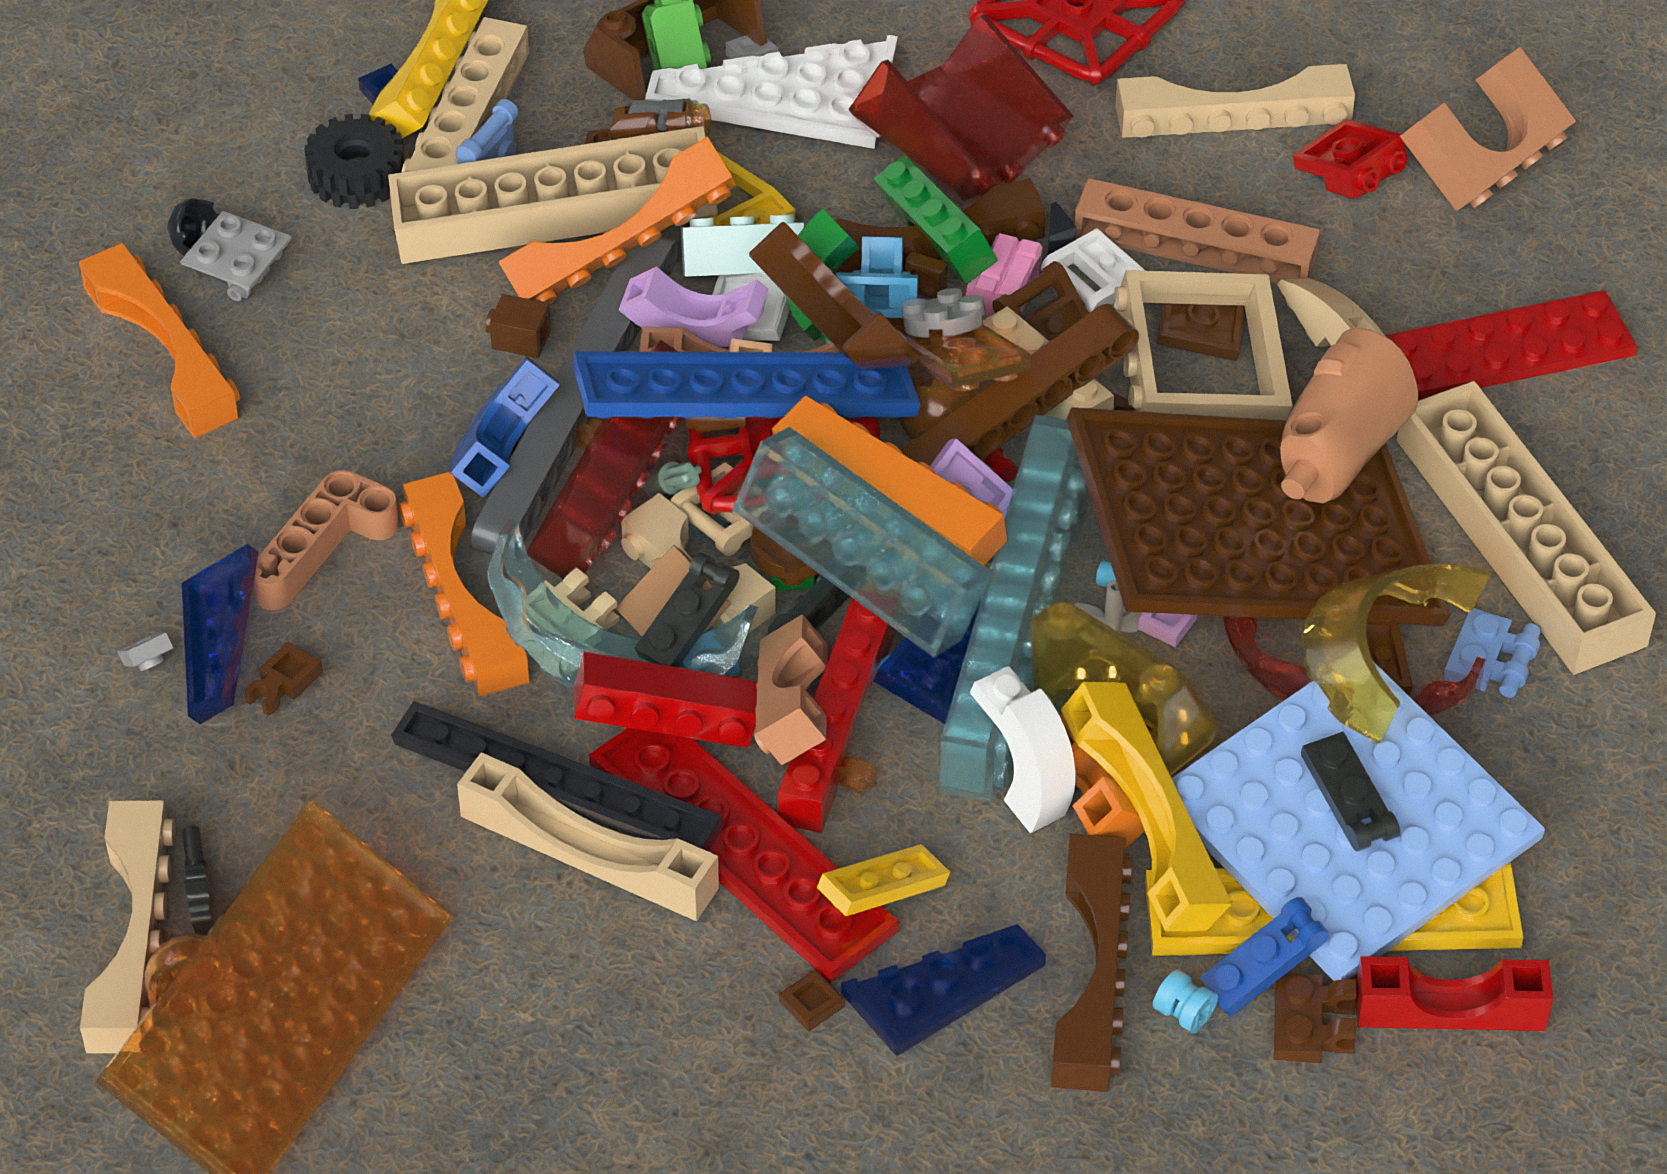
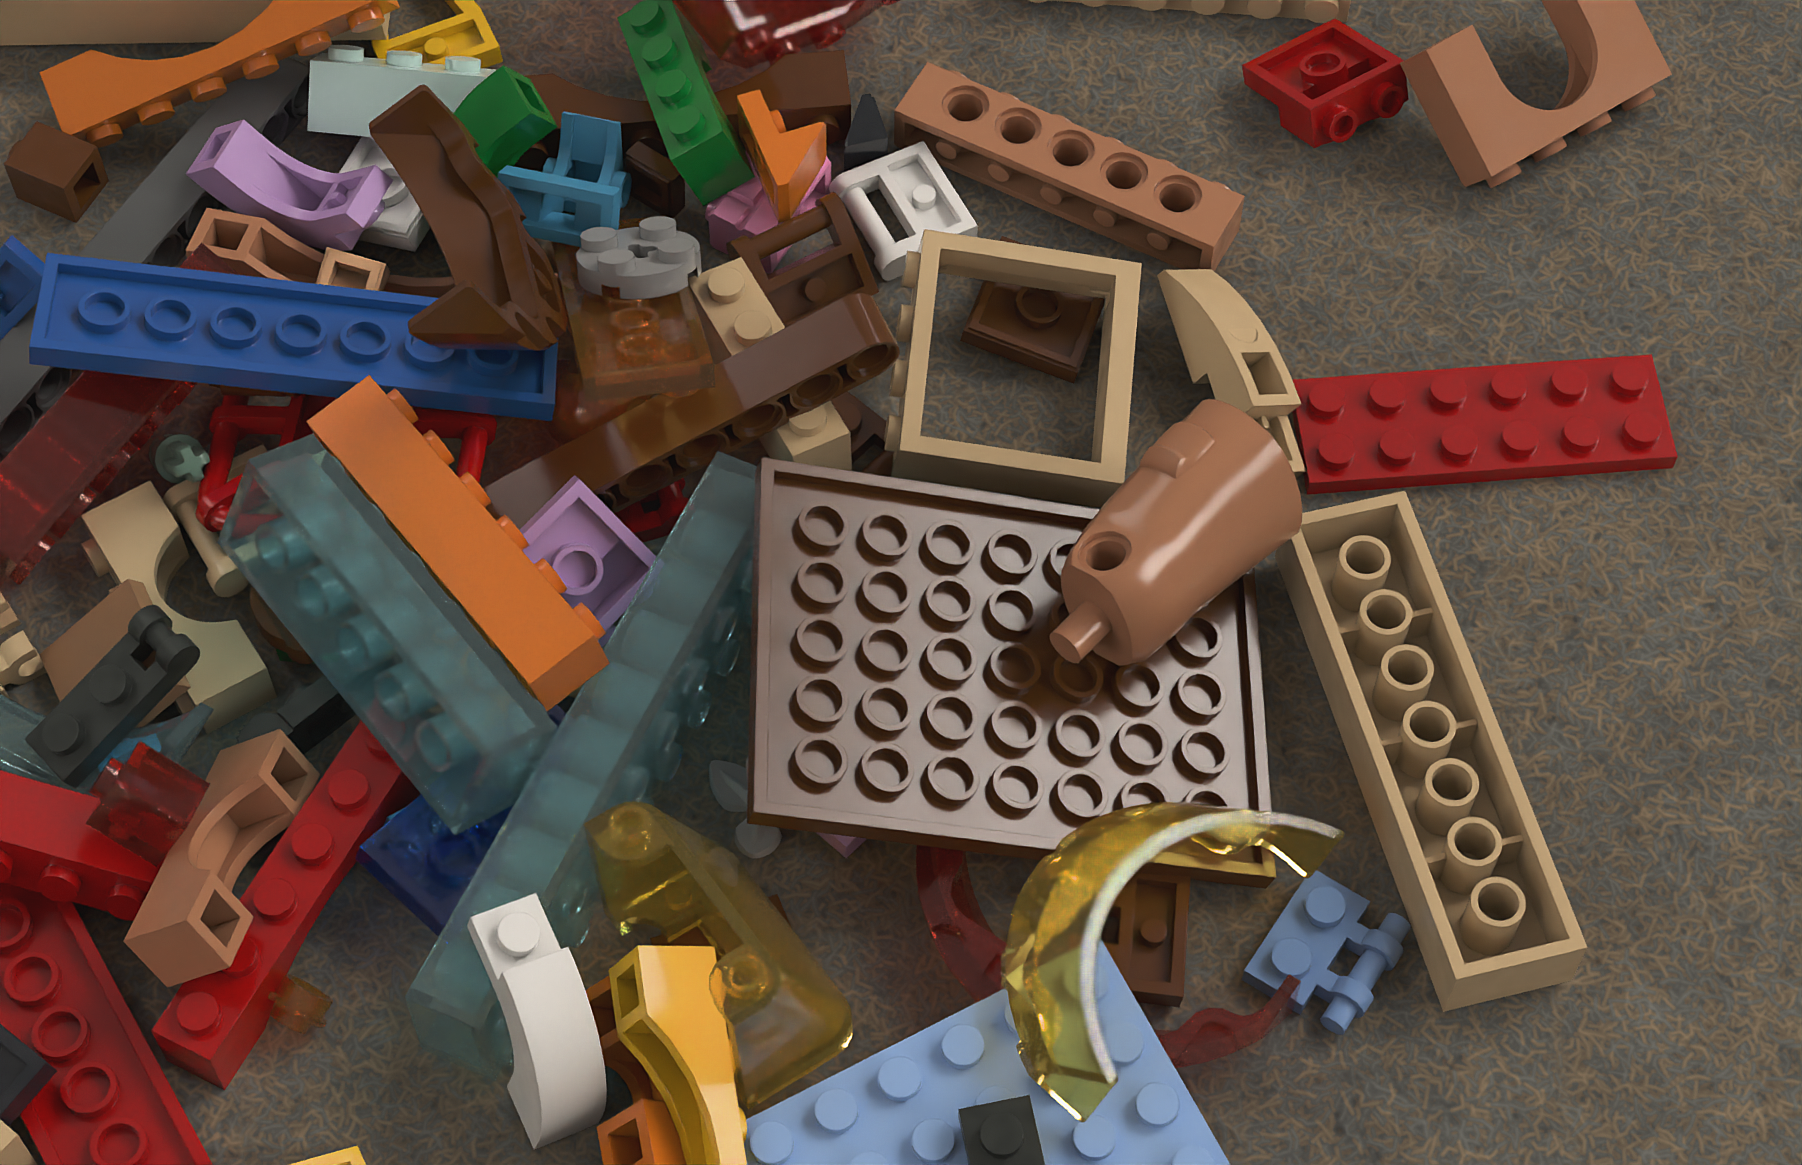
camera: 10 degrees right, 10 degrees up
(737, 661) = (145, 802): none -> clear red brick
(1013, 246) = (781, 159): none -> orange slope

